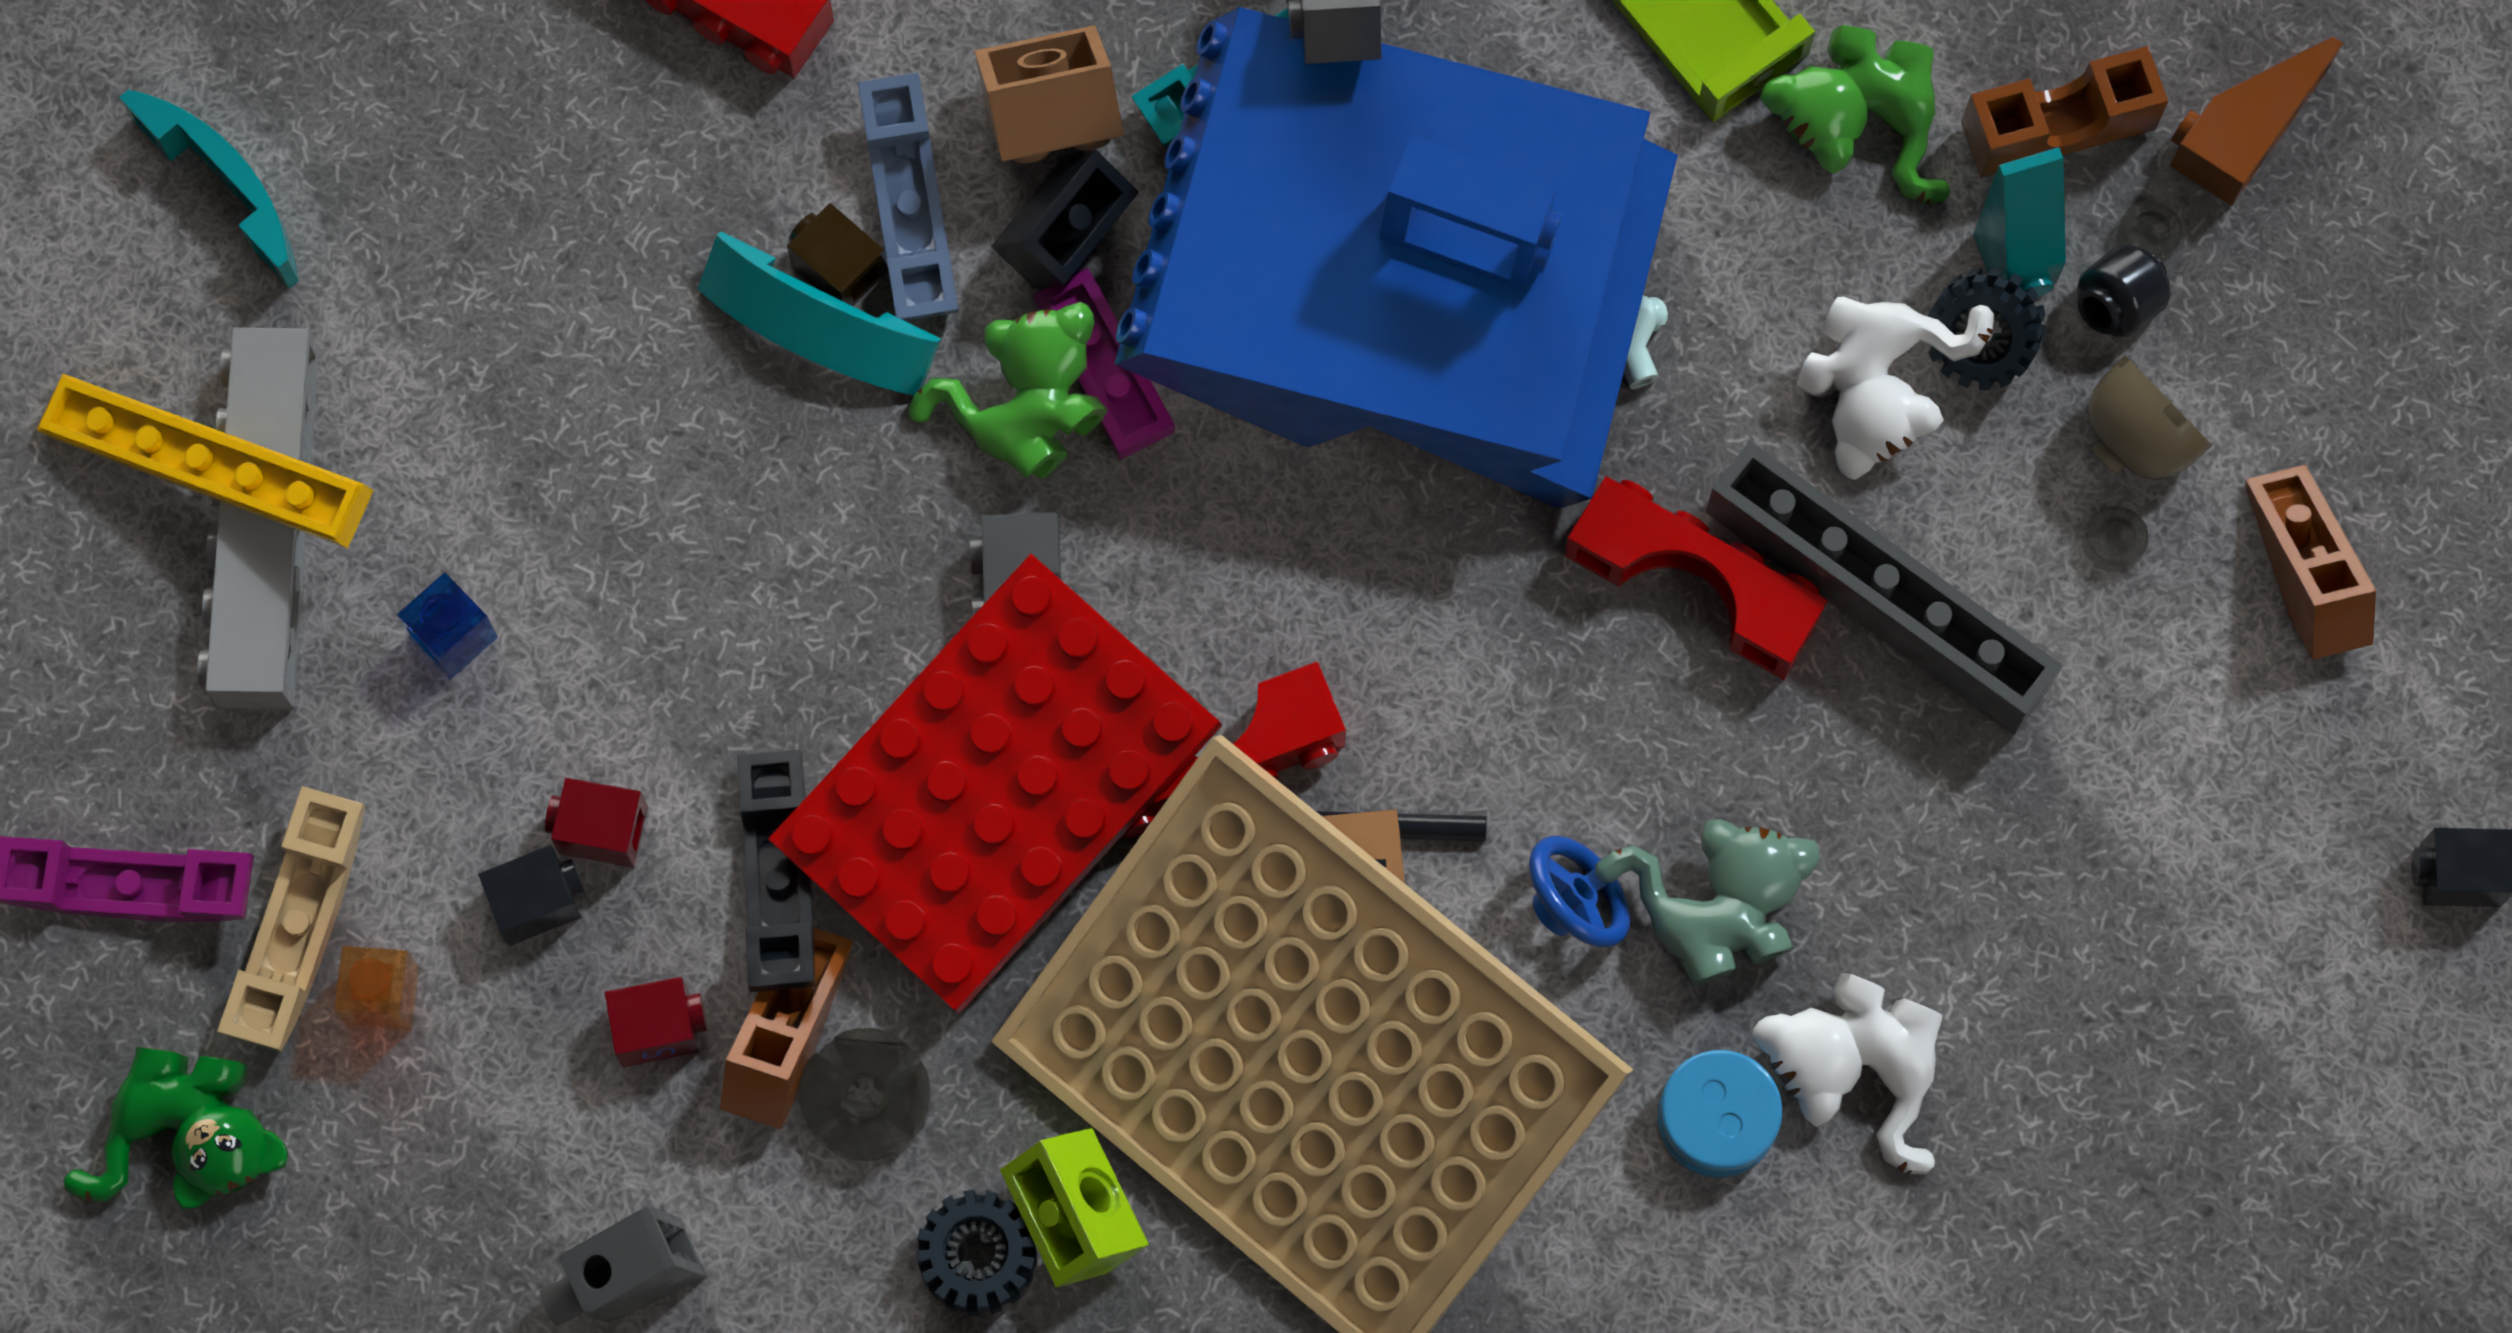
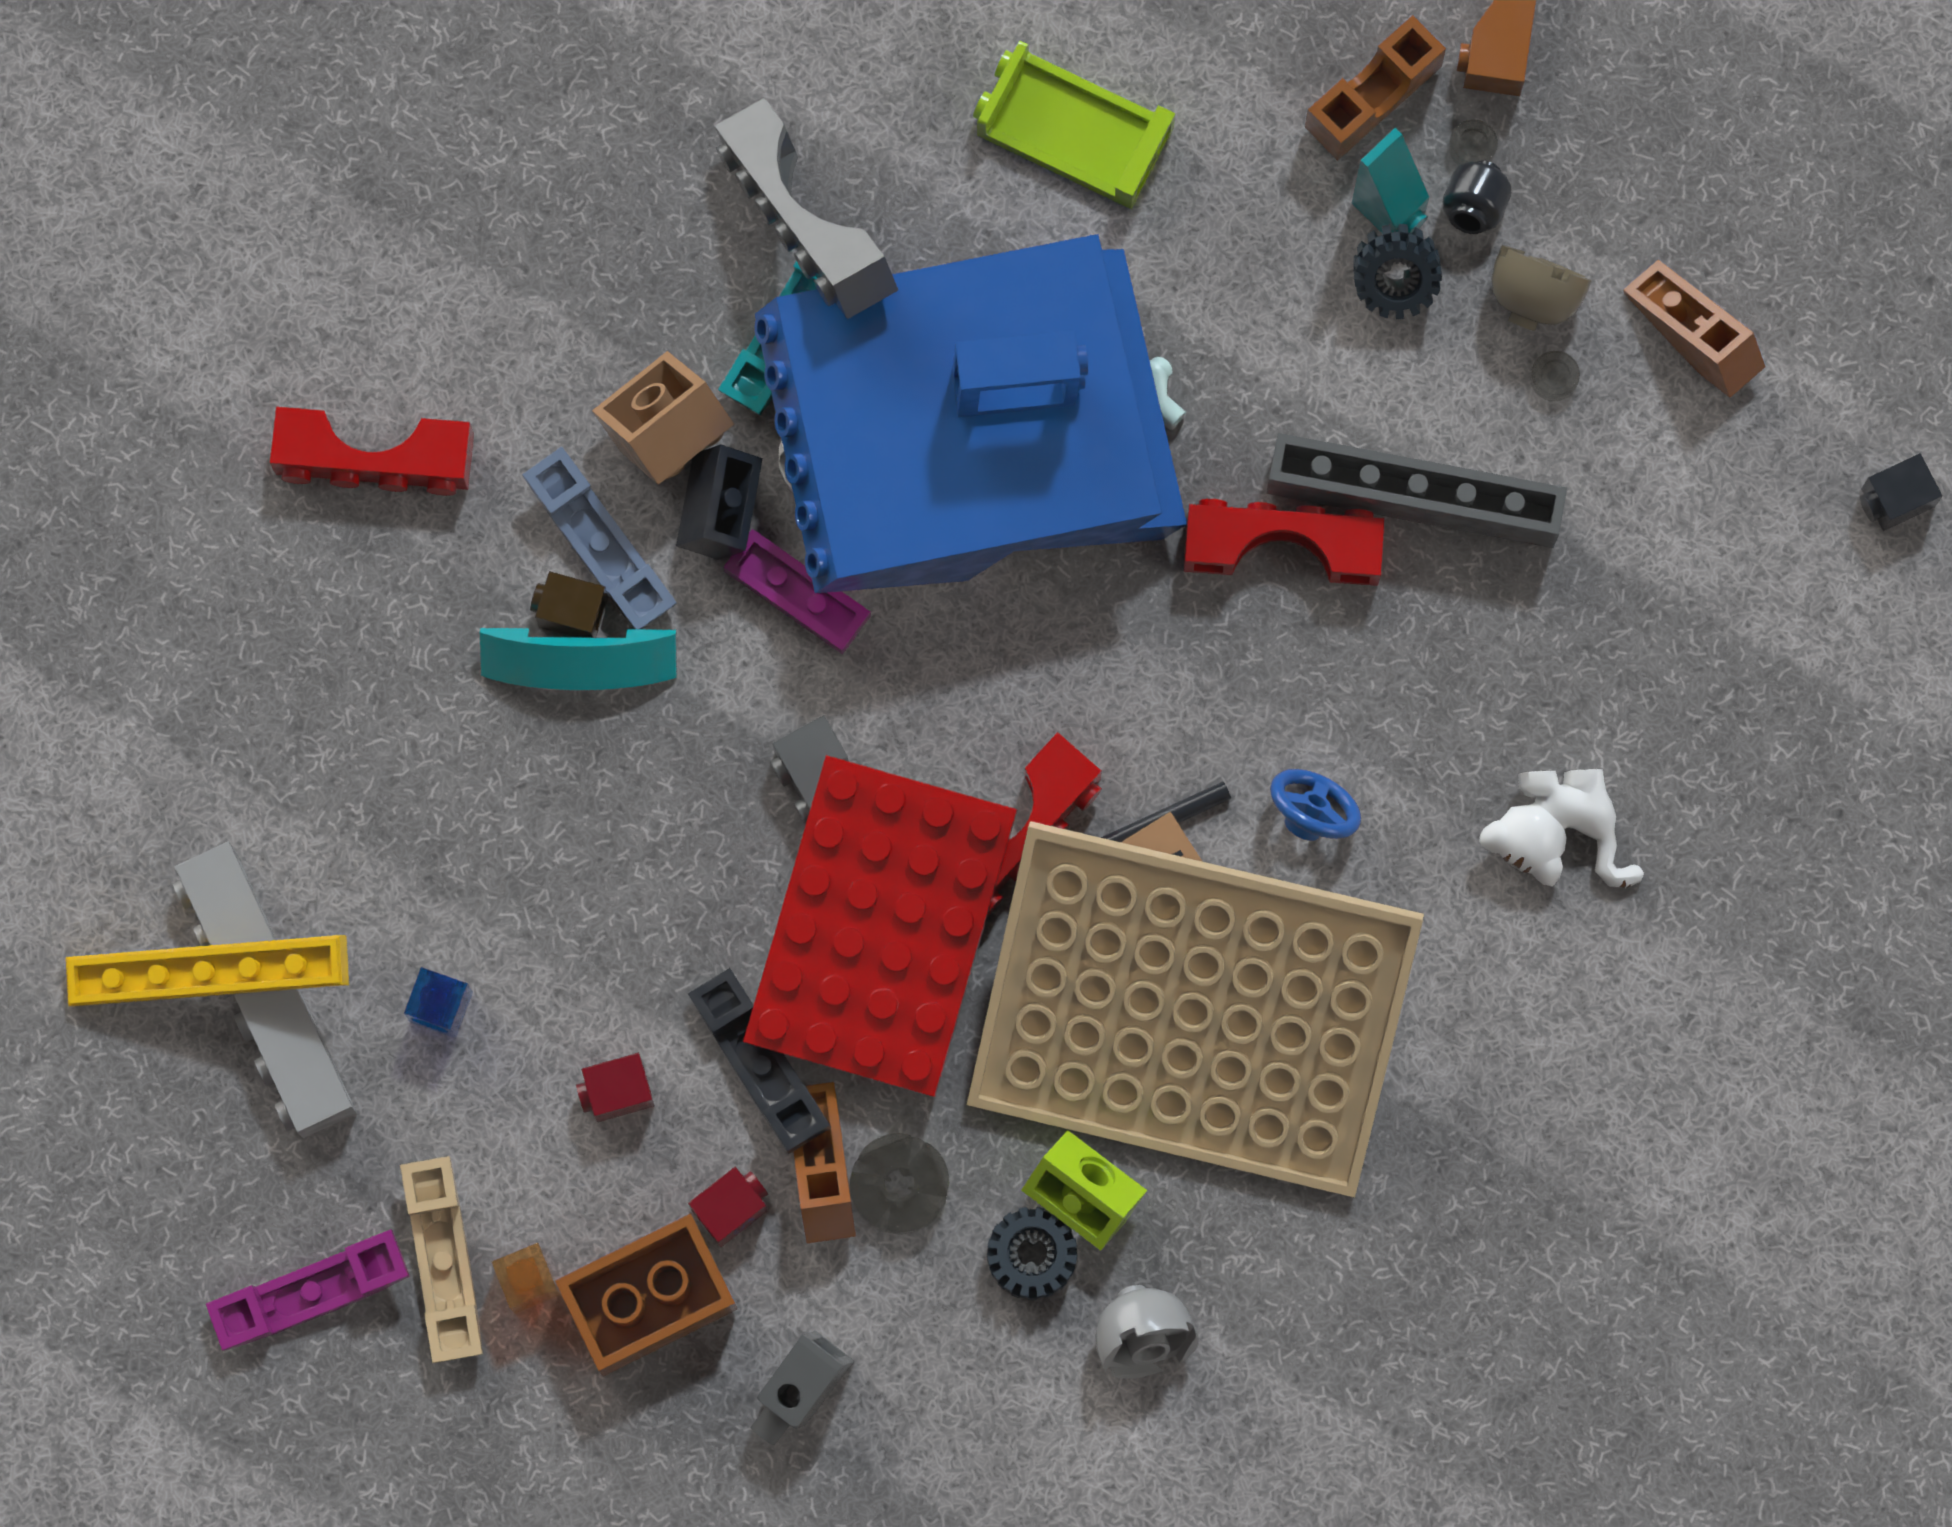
camera: 25 degrees left, 5 degrees up
(174, 131) = (46, 742): teal slope -> none
(215, 1144) = (471, 1439): green animal -> none
(501, 1075) = (646, 1295): none -> dark orange brick
(532, 894) = (598, 1159): black brick -> none
(1041, 359) = (758, 613): bright green animal -> none
(1719, 1113) = (1484, 909): dark azure head -> none
(1750, 875) = (1426, 736): sand green animal -> none
(1830, 106) = (1210, 161): bright green animal -> none
(1875, 410) = (1351, 365): white animal -> none

